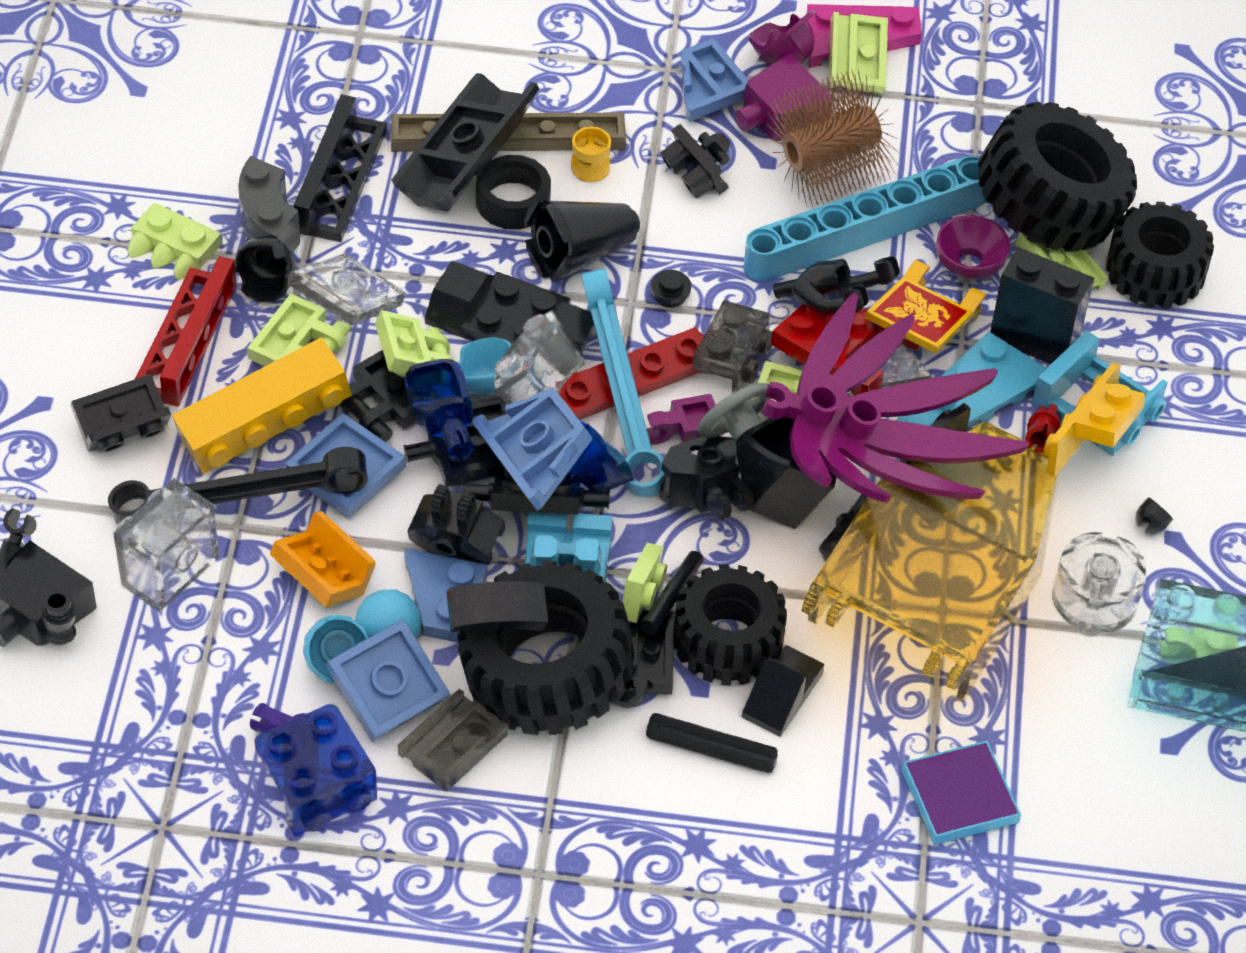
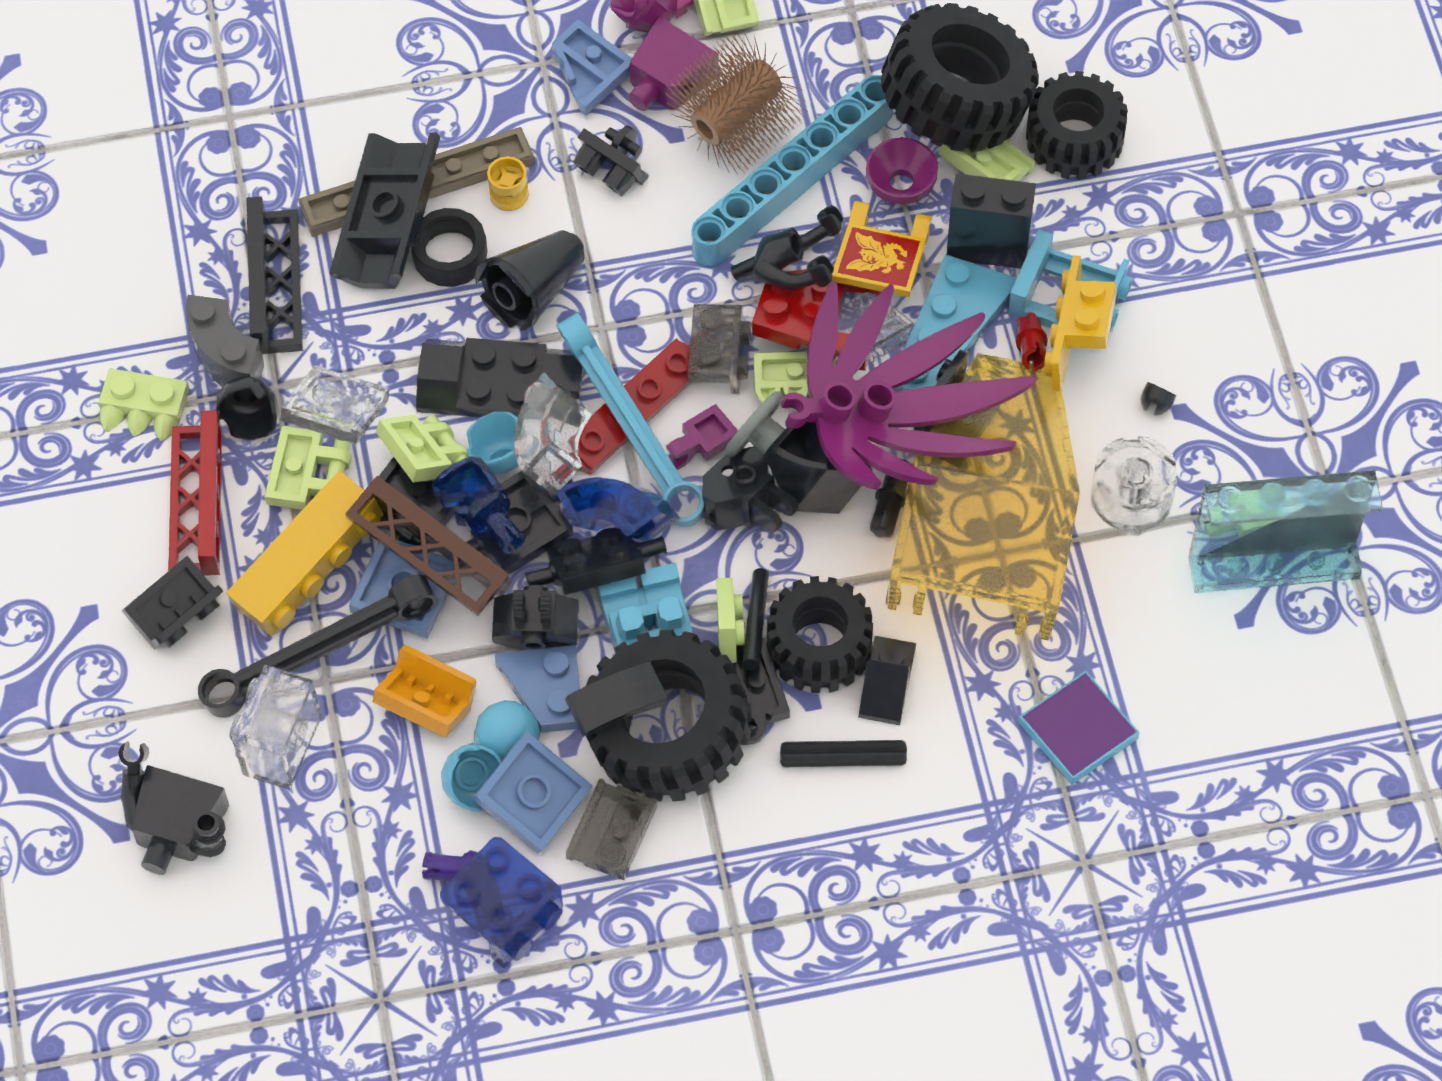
camera: 15 degrees left, 10 degrees up
(385, 421) = (438, 539): none -> reddish brown fence
(536, 442) = (584, 517): medium blue wing -> none
(671, 288) = (635, 301): black plate -> none

